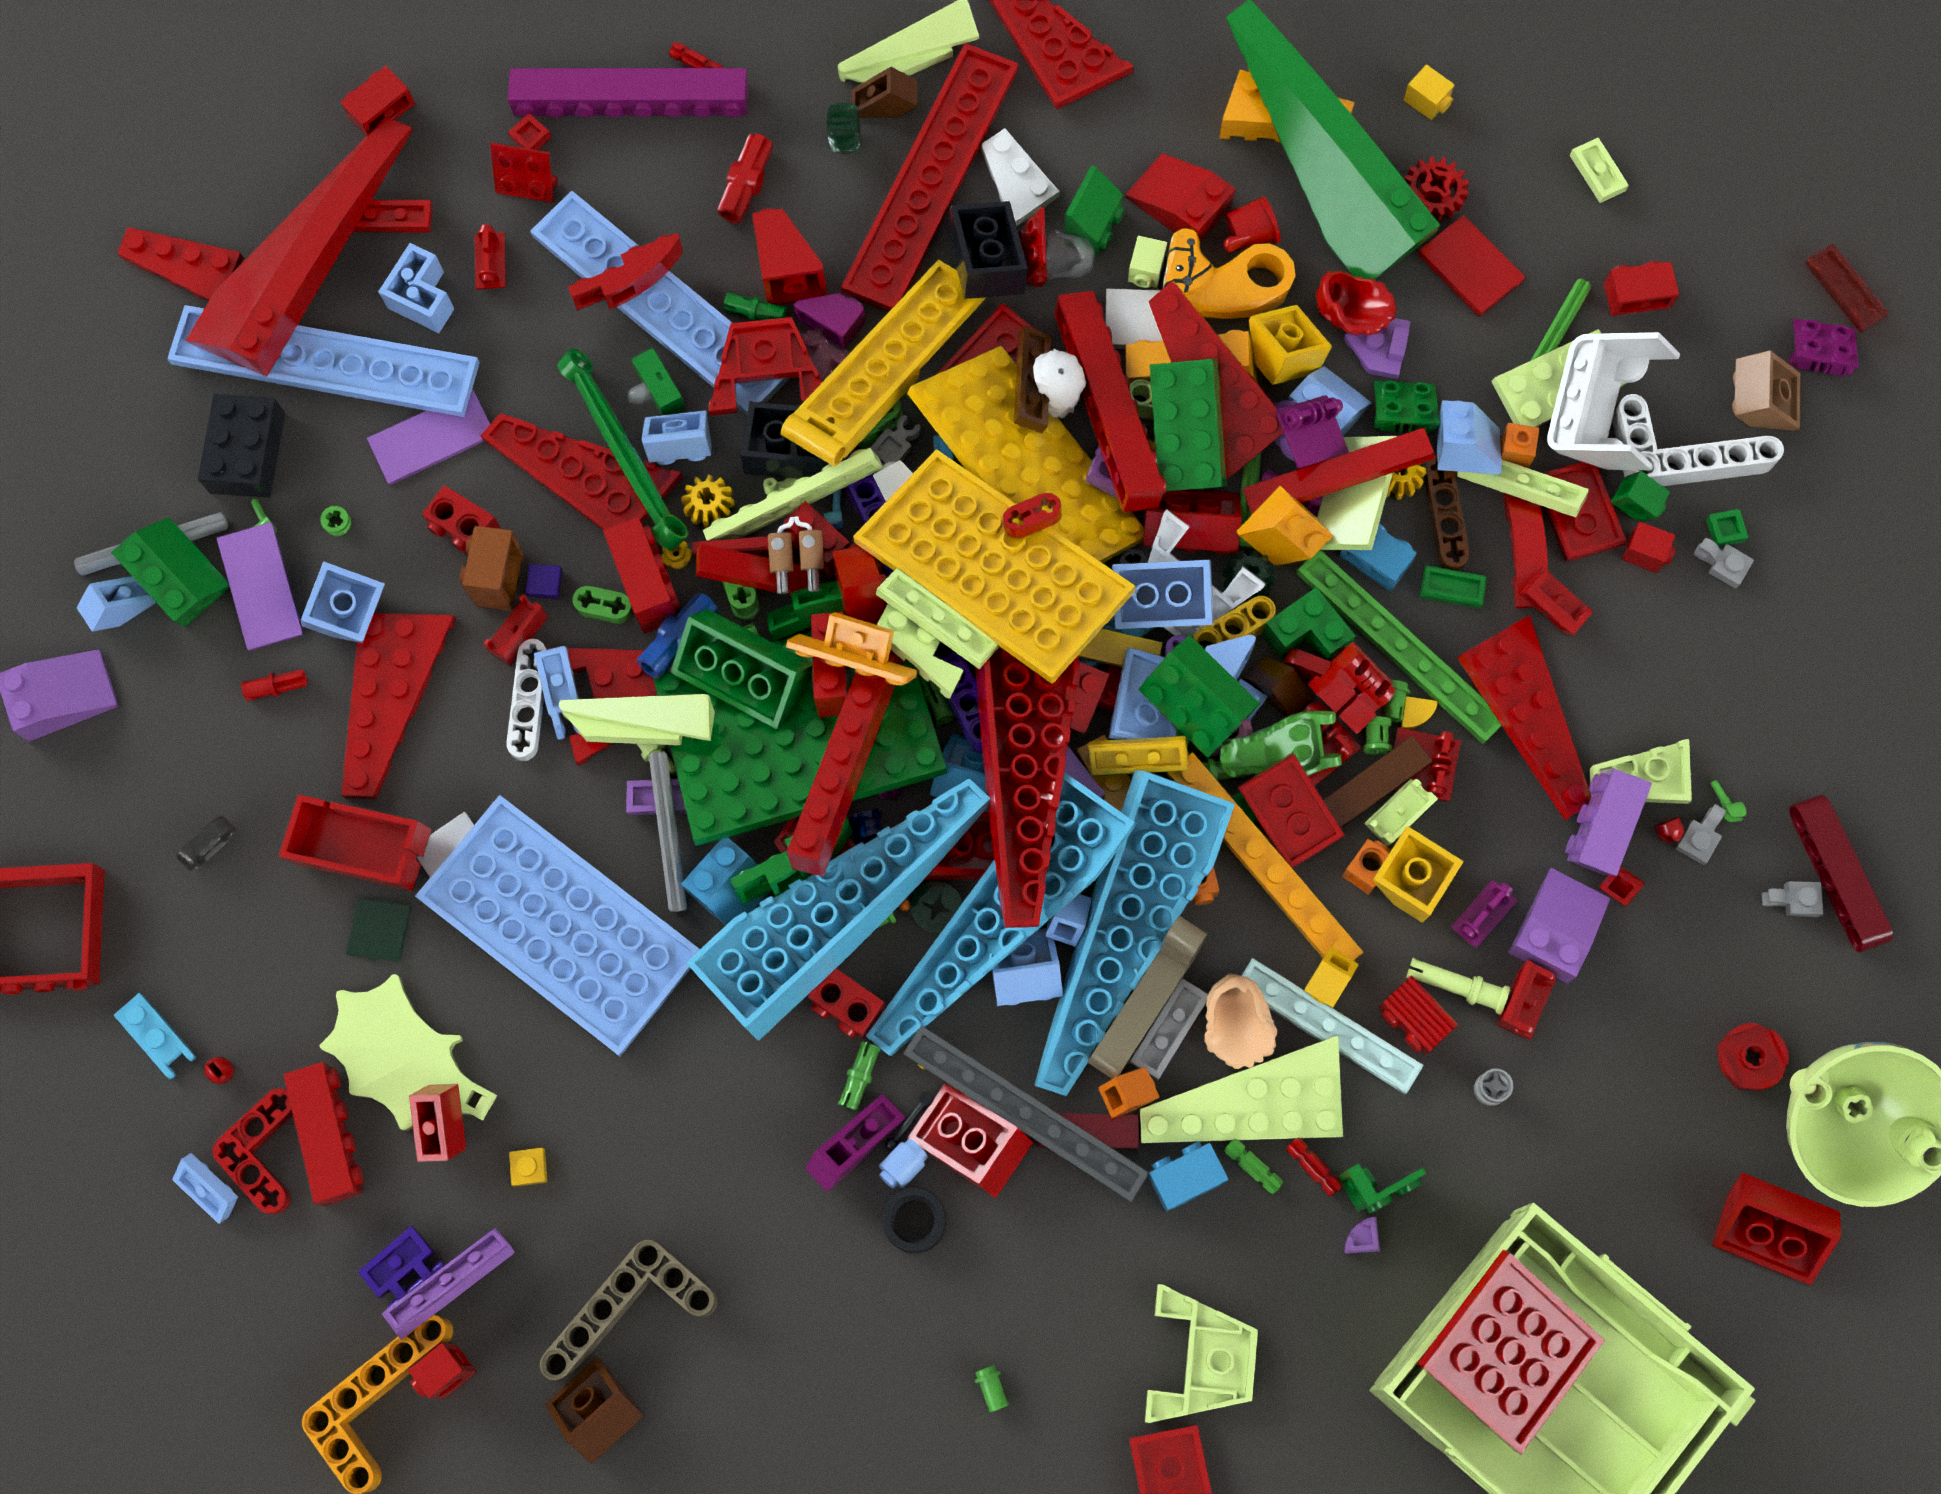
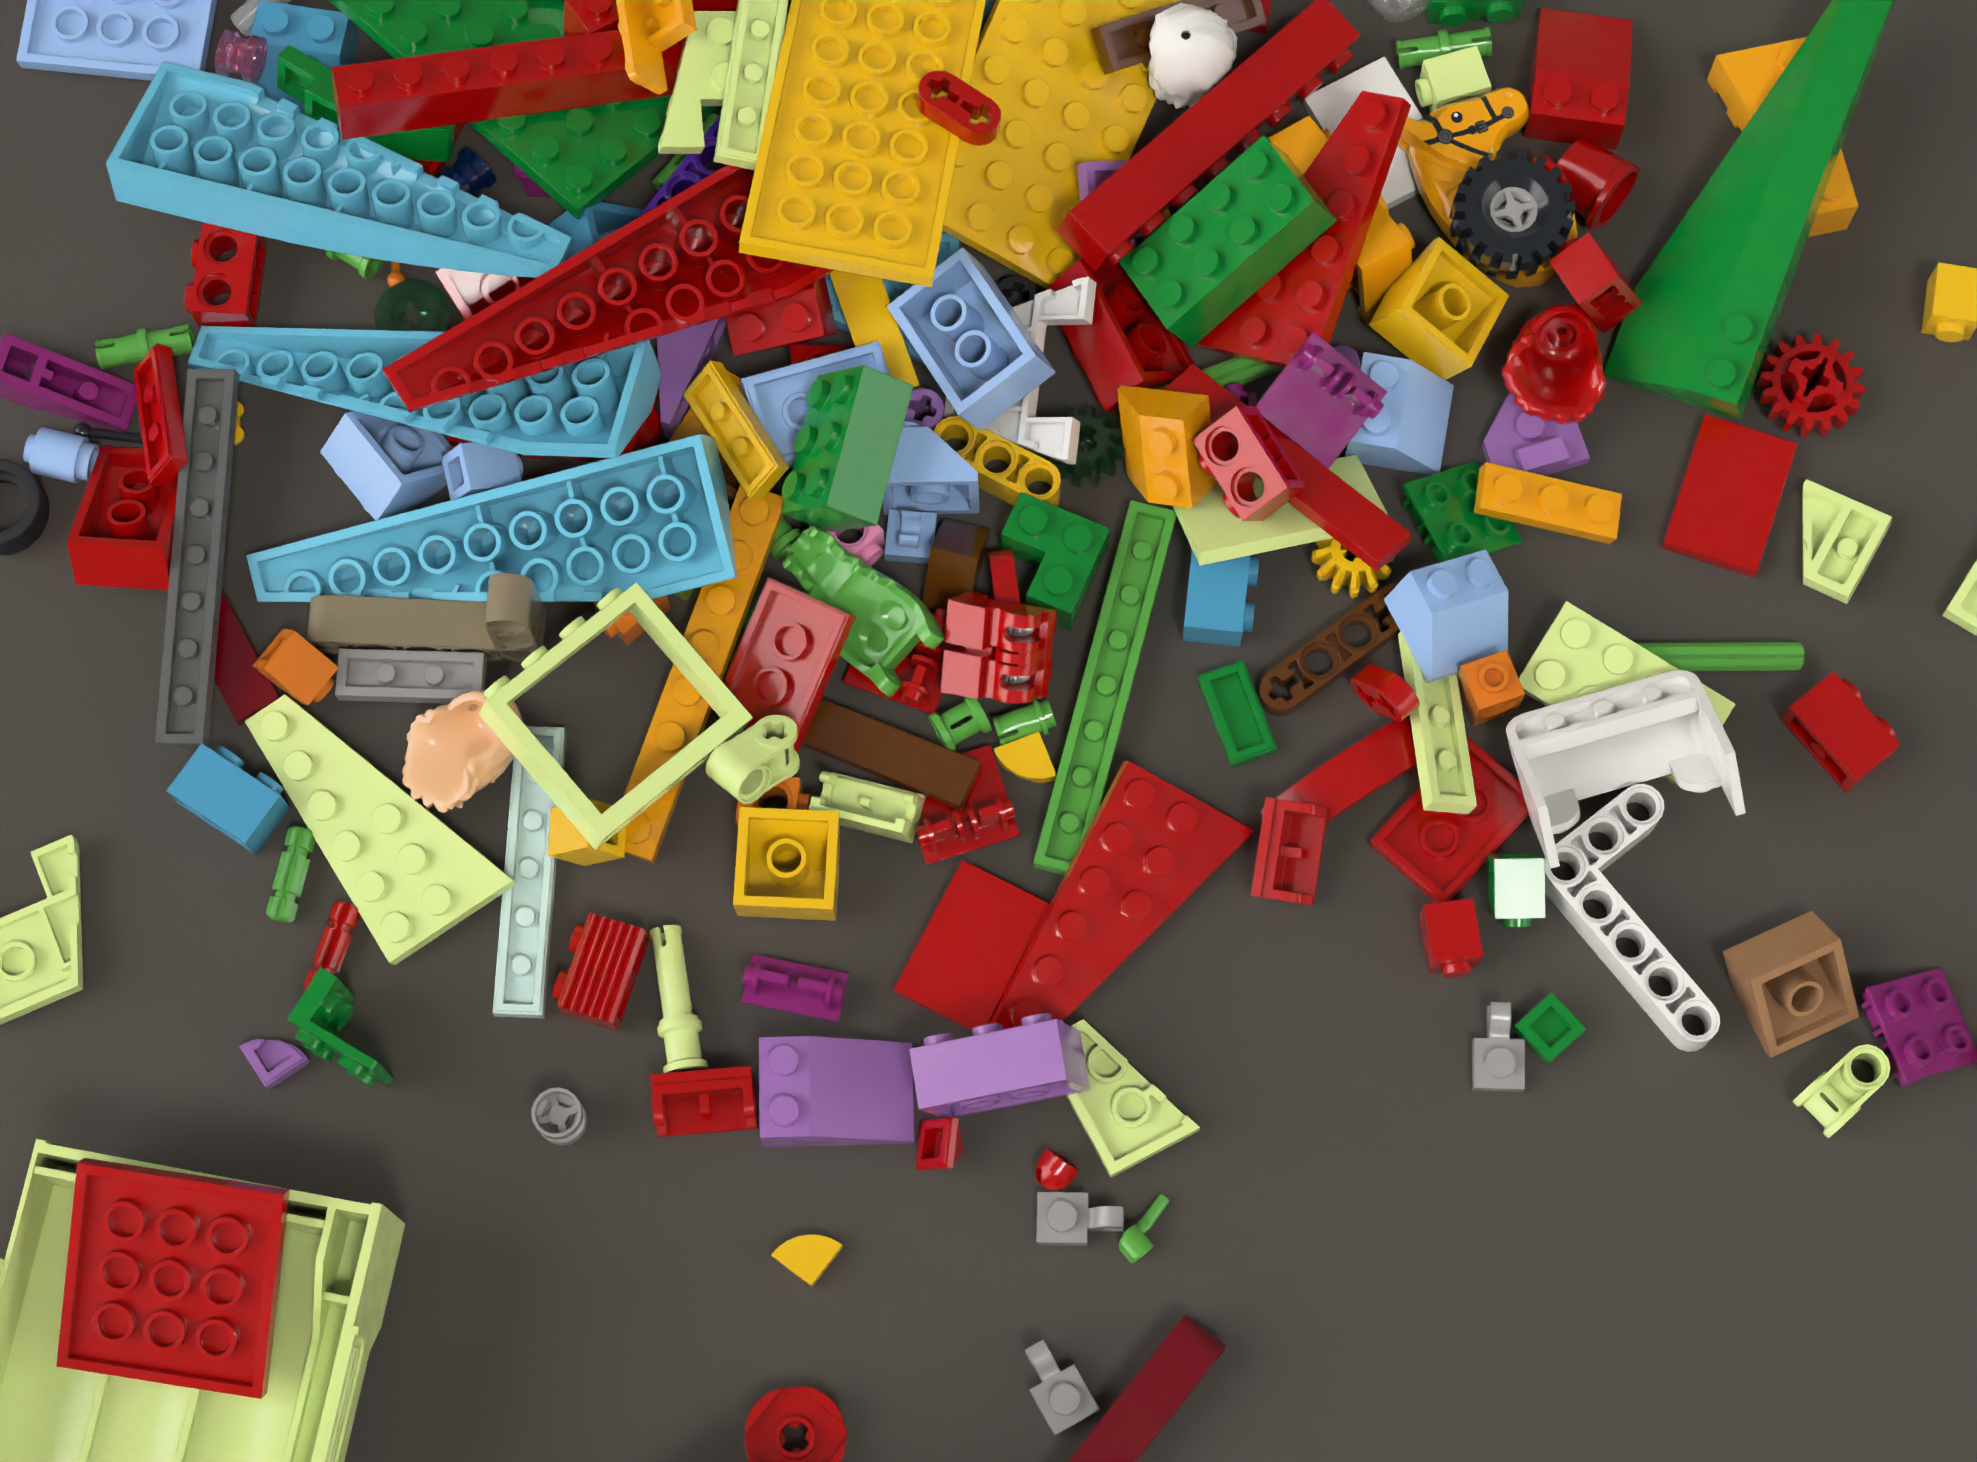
camera: 60 degrees right, 0 degrees up
(715, 912) = (241, 55): none -> clear pink wheel
(918, 1088) = (160, 415): none -> red tile
(1120, 256) = (1414, 51): none -> bright green pin
(1267, 260) = (1523, 195): none -> black wheel
(1317, 255) = (1595, 281): none -> red brick
(1333, 906) = (593, 825): none -> yellowish green window
(1336, 478) = (1256, 455): none -> brick
(1349, 853) = (756, 758): none -> yellowish green piece
(1426, 356) = (1548, 503): none -> light orange plate
(1493, 500) = (1384, 692): none -> red beam
(1513, 804) = (971, 947): none -> red tile
(1530, 227) = (1838, 540): none -> yellowish green wing
(1647, 993) = (807, 1256): none -> yellow tile
(1842, 406) = (1838, 1094): none -> yellowish green piece

